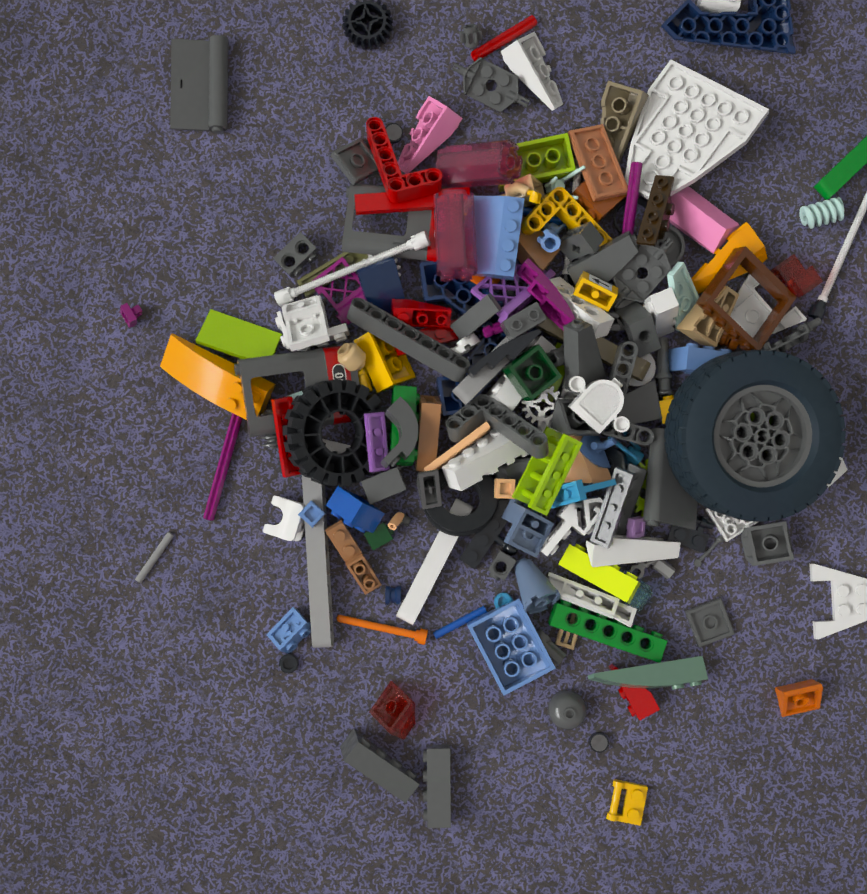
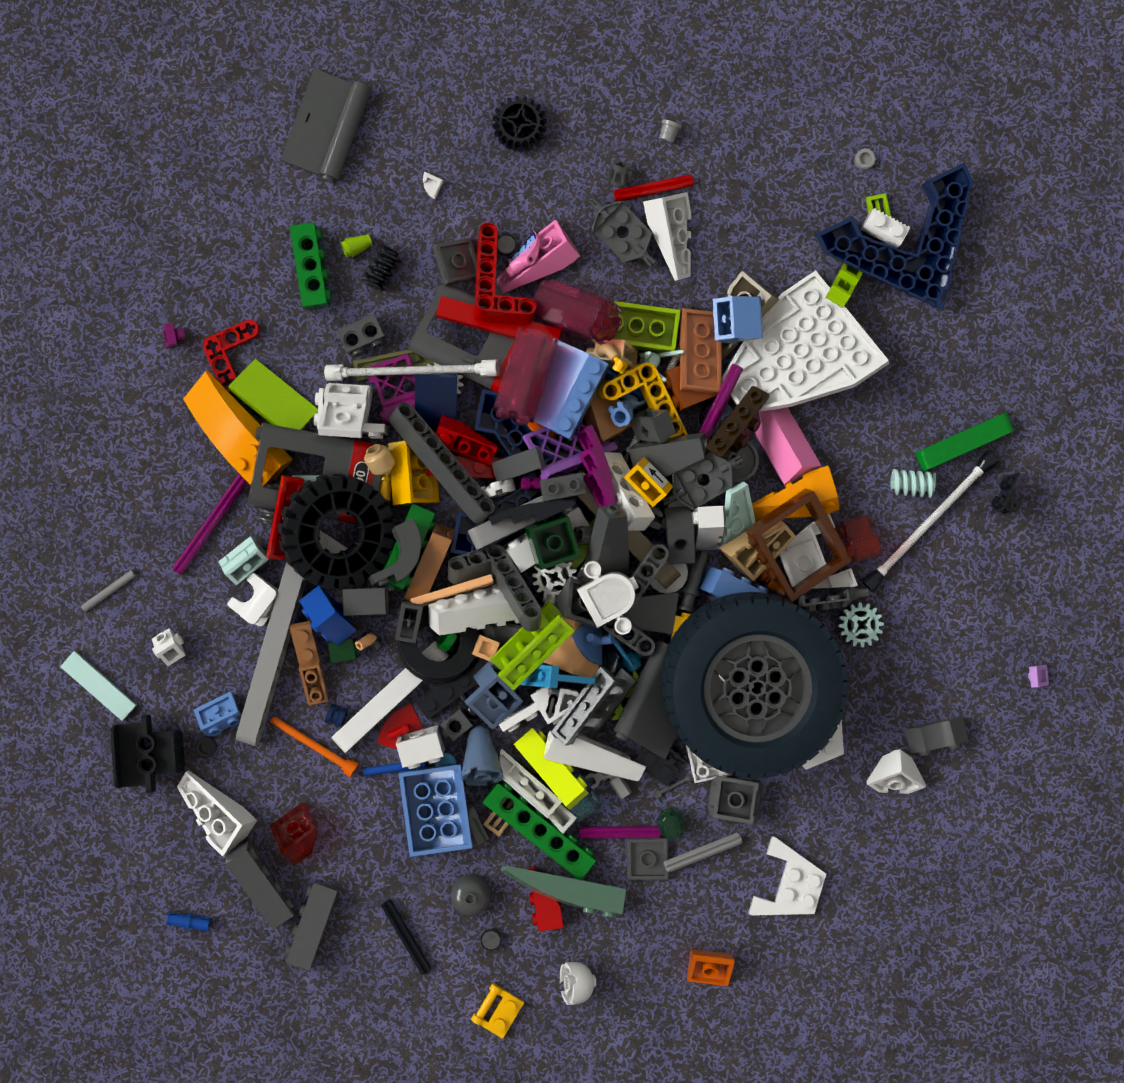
camera: 15 degrees right, 0 degrees up
(175, 643) = (98, 685): none -> light aqua tile
(179, 308) = (224, 346): none -> red beam
(212, 187) = (300, 235): none -> green brick
(224, 587) = (168, 646): none -> white brick
(225, 693) = (130, 754): none -> black piece
(261, 180) = (355, 245): none -> lime cone
(263, 488) = (243, 560): none -> light aqua brick
(292, 186) = (382, 268): none -> black piece
(310, 104) = (432, 184): none -> white tile
(312, 513) = (282, 604): medium blue tile -> none
(323, 719) = (219, 815): none -> white wedge
(328, 821) = (188, 921): none -> blue pin
(376, 440) = (373, 553): medium lavender tile -> none
(414, 135) = (524, 256): none -> bright pink arm
(455, 586) = (399, 723): none -> red shield
(466, 496) = (446, 641): none -> green tile
(478, 596) = (420, 747): none -> white brick
(523, 766) = (406, 937): none -> black axle
(621, 122) = (737, 319): none -> medium blue slope
(635, 527) = (604, 735): lavender plate -> none
(677, 608) = (619, 832): none -> magenta axle
(689, 753) = (577, 982): none -> white cylinder
(701, 60) = (843, 285): none -> lime slope
(720, 584) = (671, 823): none -> clear green head
(756, 599) = (702, 852): none -> light grey axle
(829, 348) = (853, 618): none -> light aqua gear

